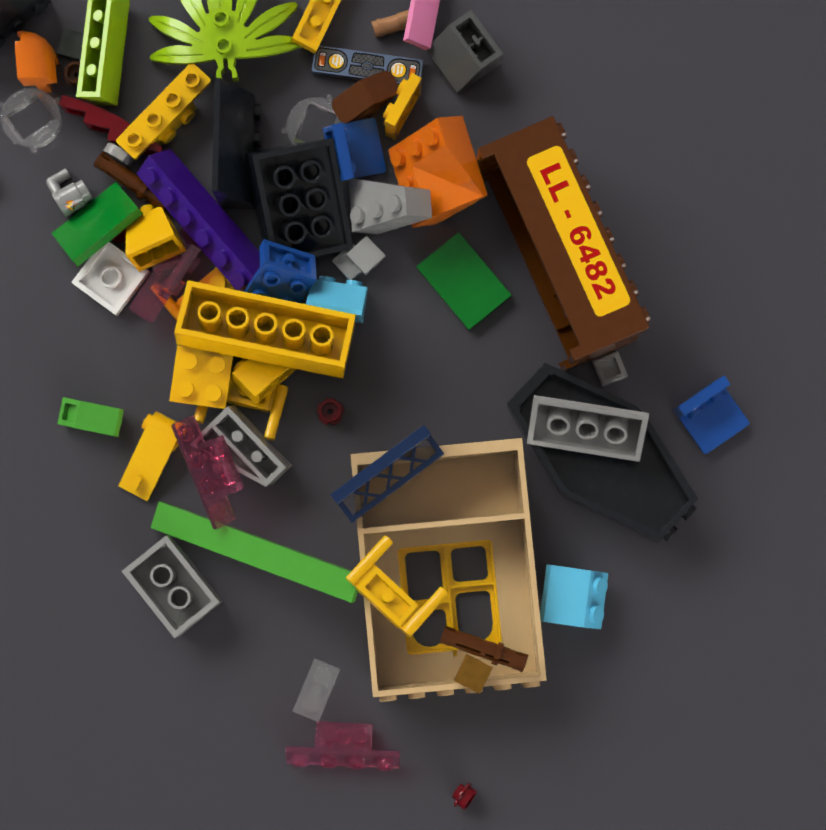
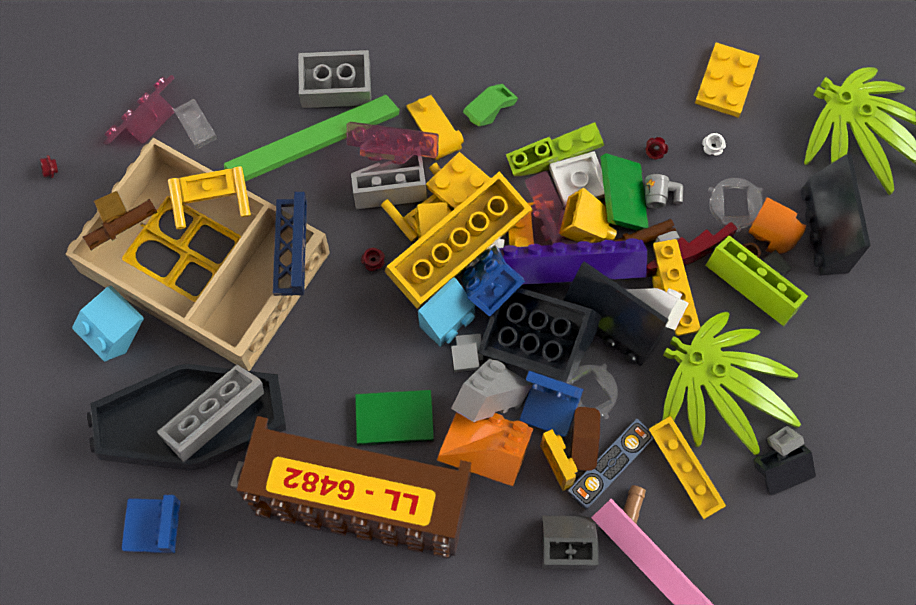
camera: 130 degrees right, 15 degrees down
(25, 227) = (655, 153): none -> dark red plate
(97, 319) = (541, 154): none -> lime slope
(196, 113) = (664, 302): none -> white slope

